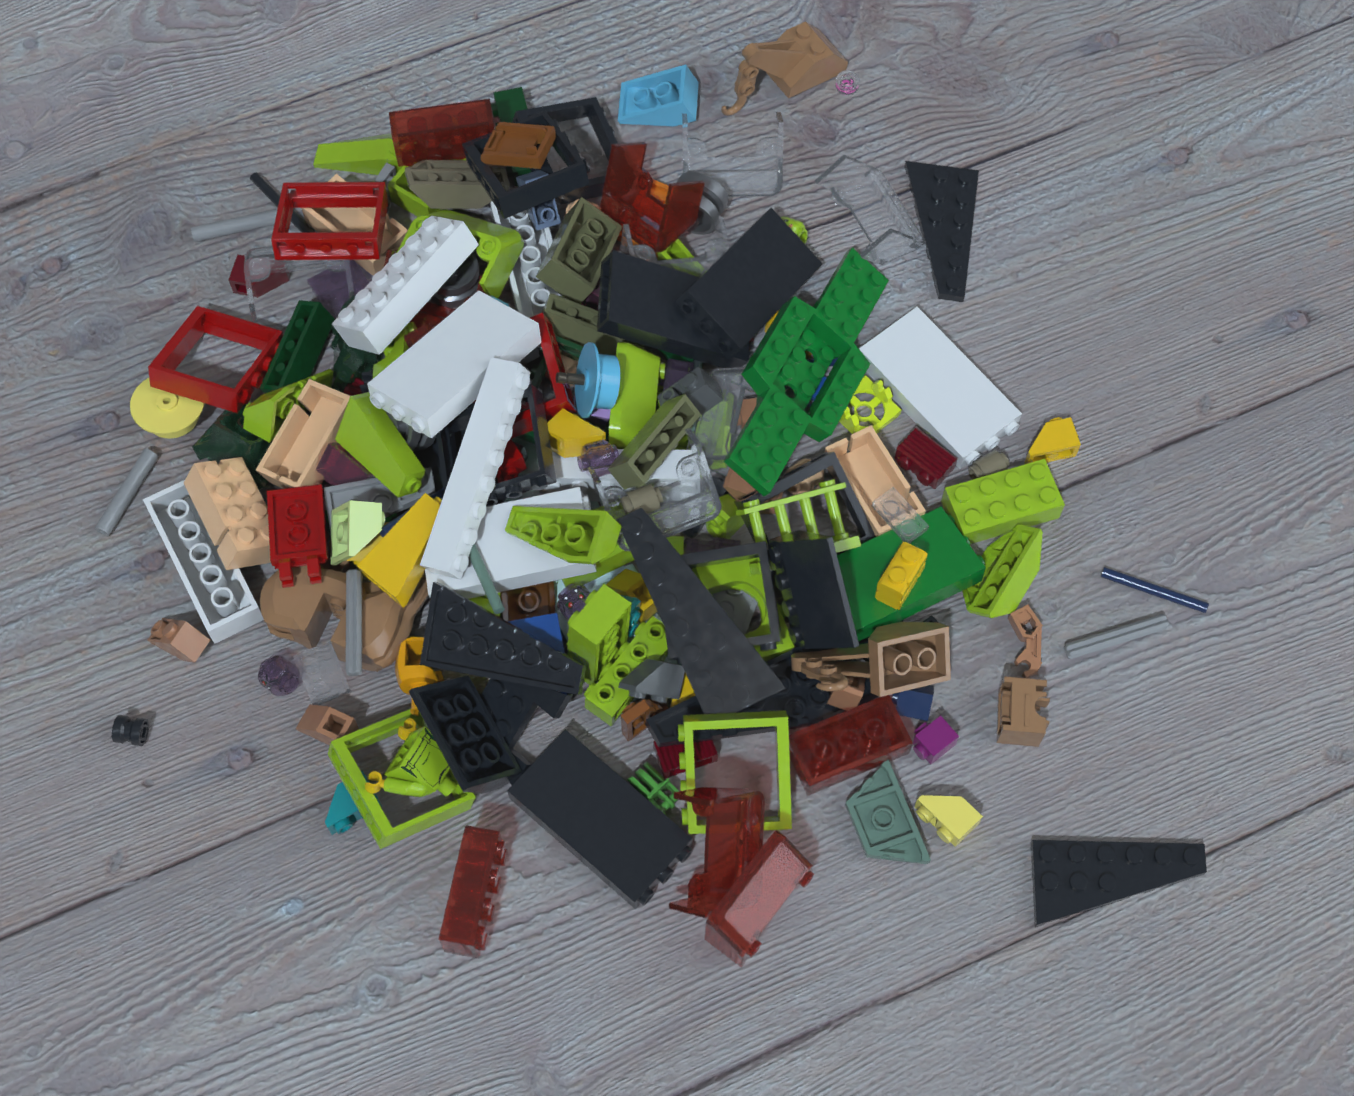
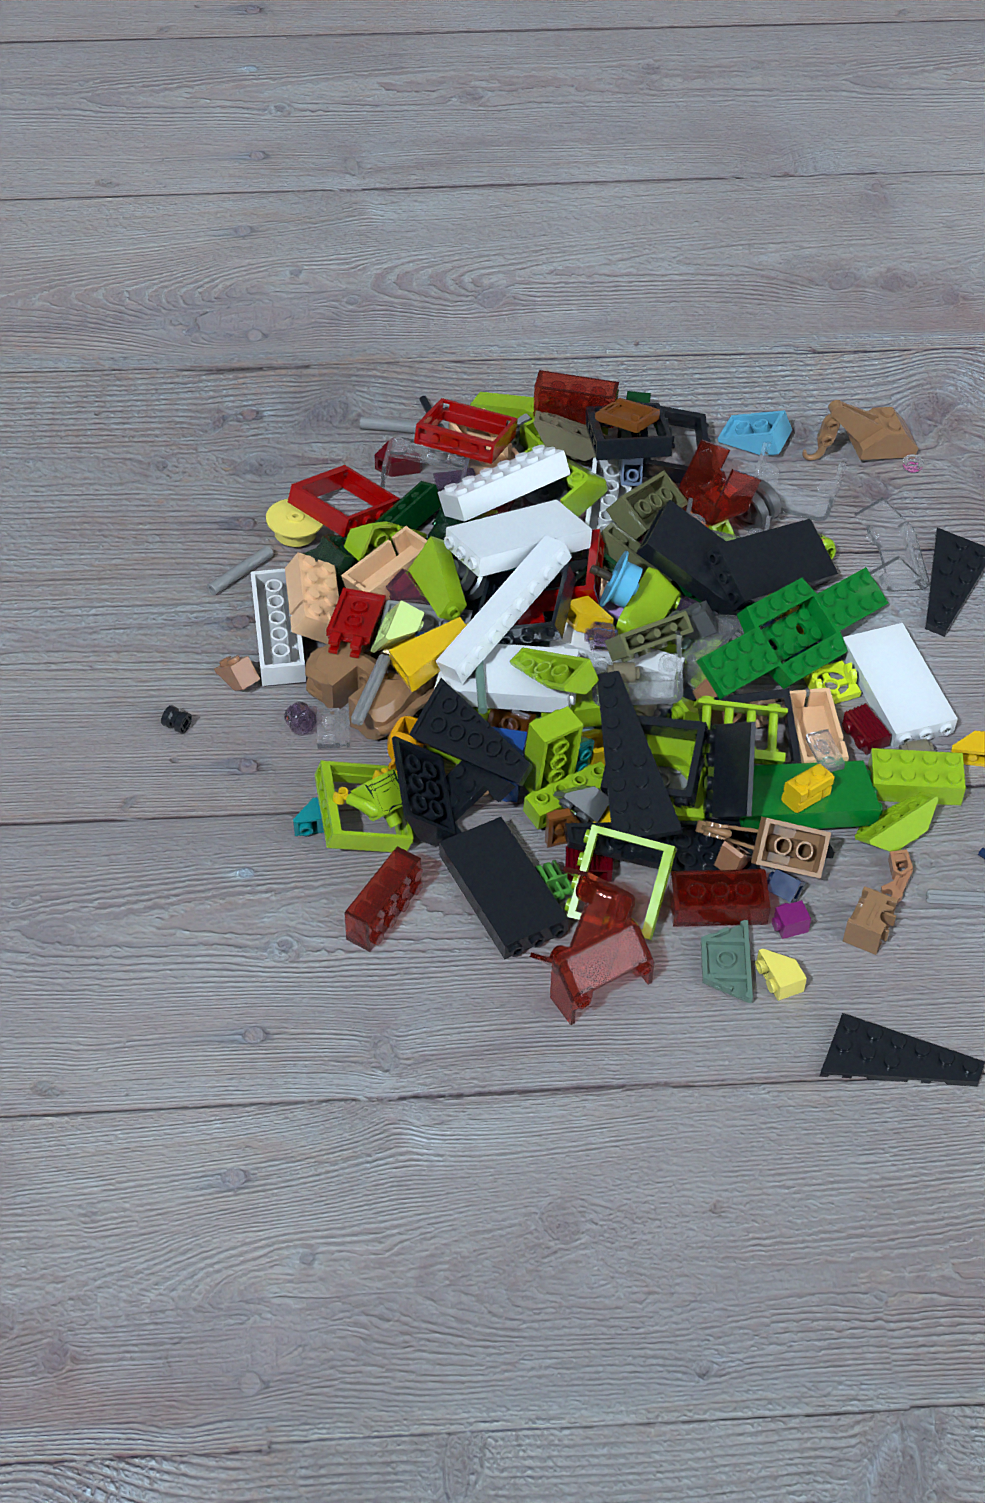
camera: 20 degrees right, 15 degrees down
(326, 723) = (319, 752): nougat slope -> none

